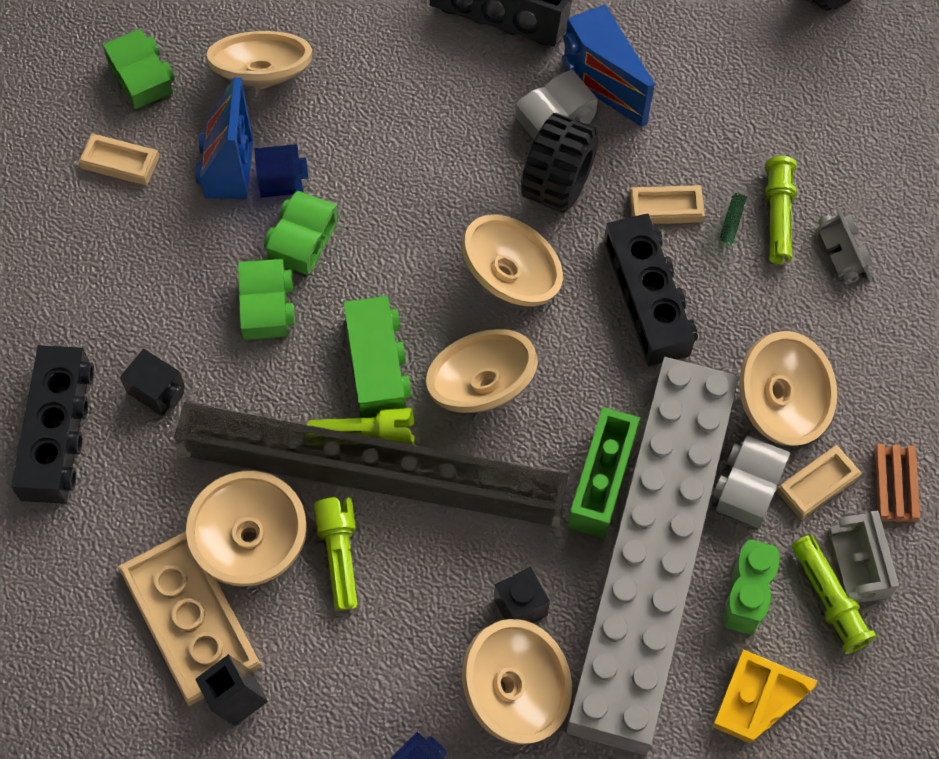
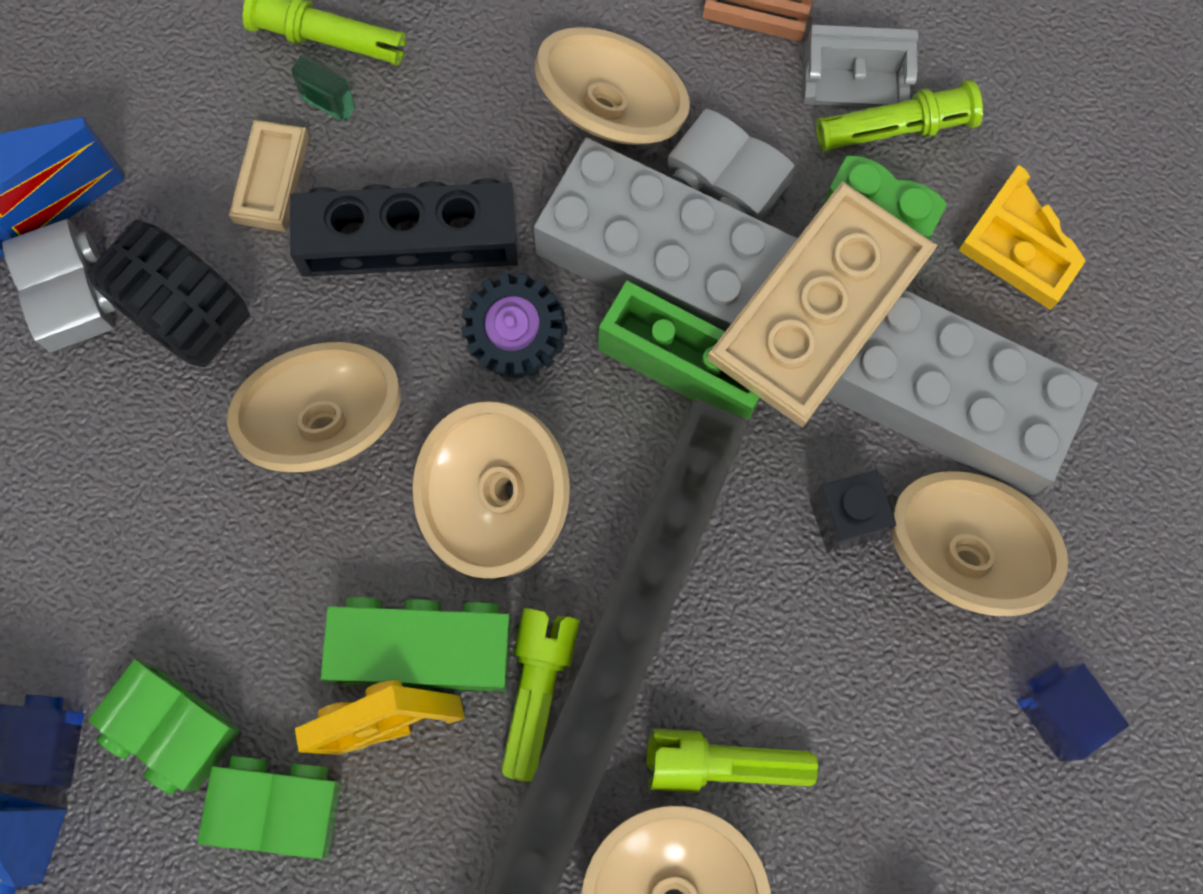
camera: 80 degrees left, 10 degrees up
(328, 341) = (375, 718): none -> yellow wing
(598, 366) = (514, 325): none -> black wheel
(656, 541) = (821, 304): none -> tan tile
(818, 482) = (739, 90): tan tile -> none

